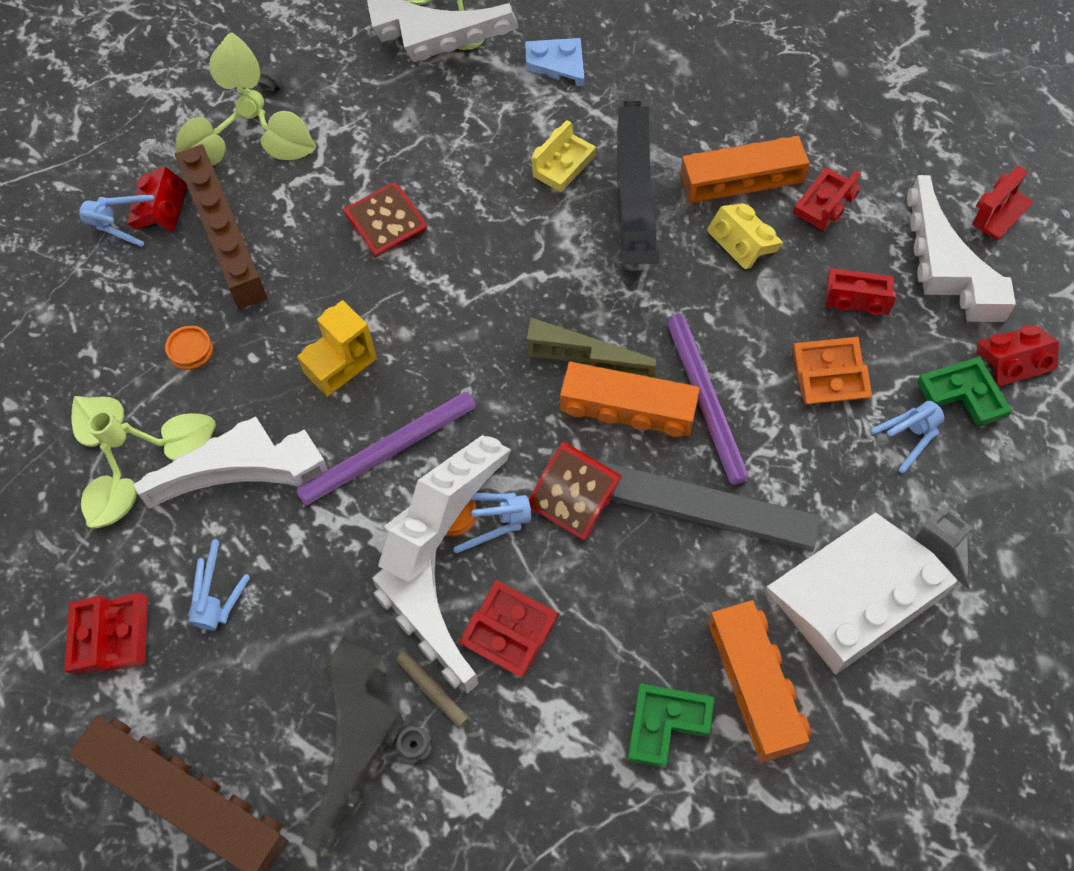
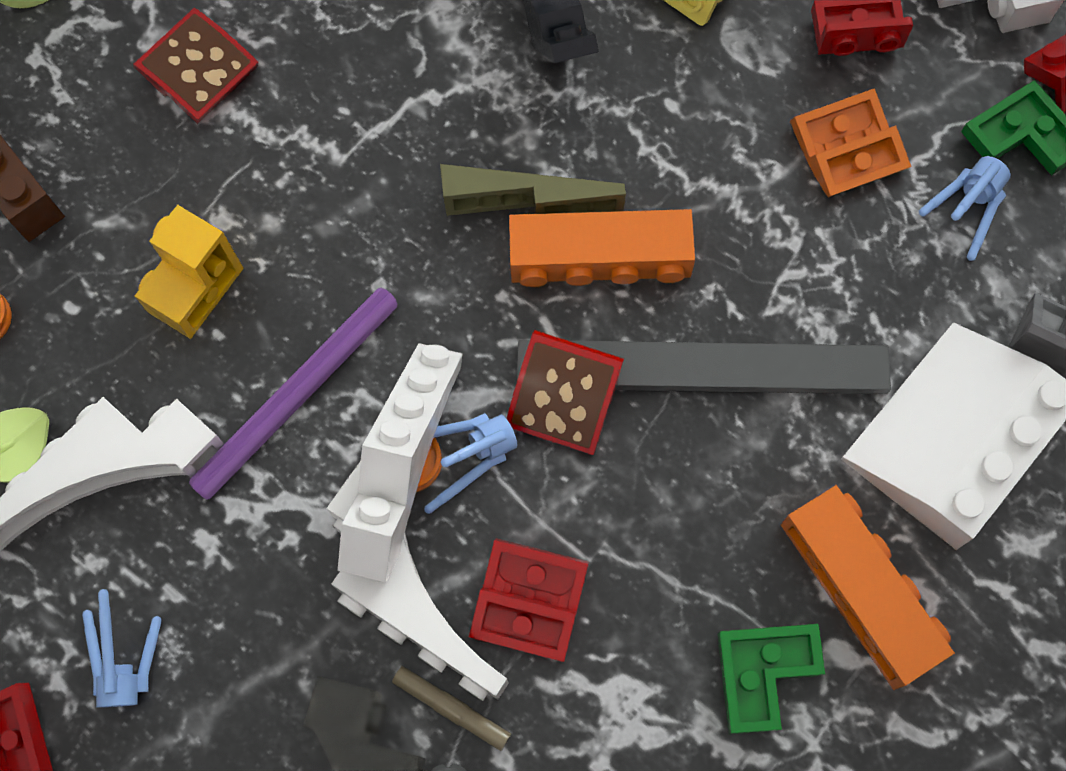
camera: 15 degrees left, 10 degrees up
(707, 400) = (705, 225): medium lavender axle -> none

